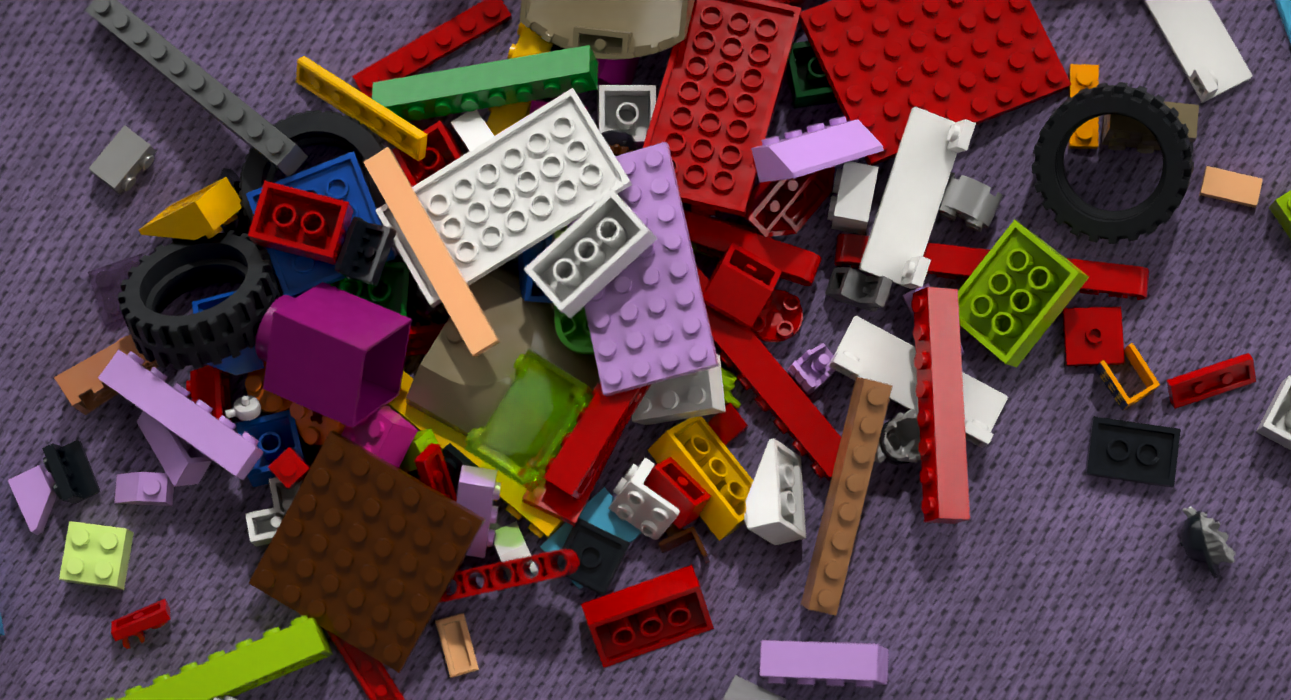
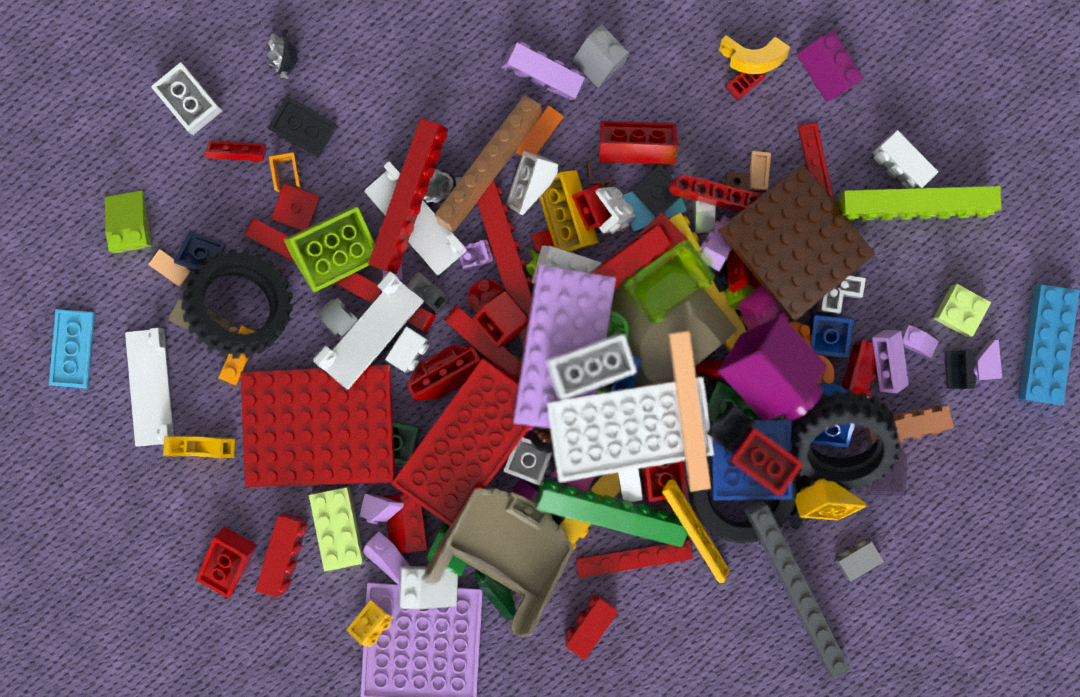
camera: 170 degrees left, 10 degrees up
(137, 622) = (948, 259): red plate -> none
(180, 414) = (883, 371): lavender brick -> none
(244, 408) = (839, 363): white piece -> none
(289, 468) = (826, 311): red brick -> none
(484, 612) = (737, 180): none -> reddish brown brick
(792, 577) = (540, 132): none -> orange tile
(814, 149) = (421, 382): lavender slope -> none
(1198, 220) = (195, 251): none -> dark blue slope

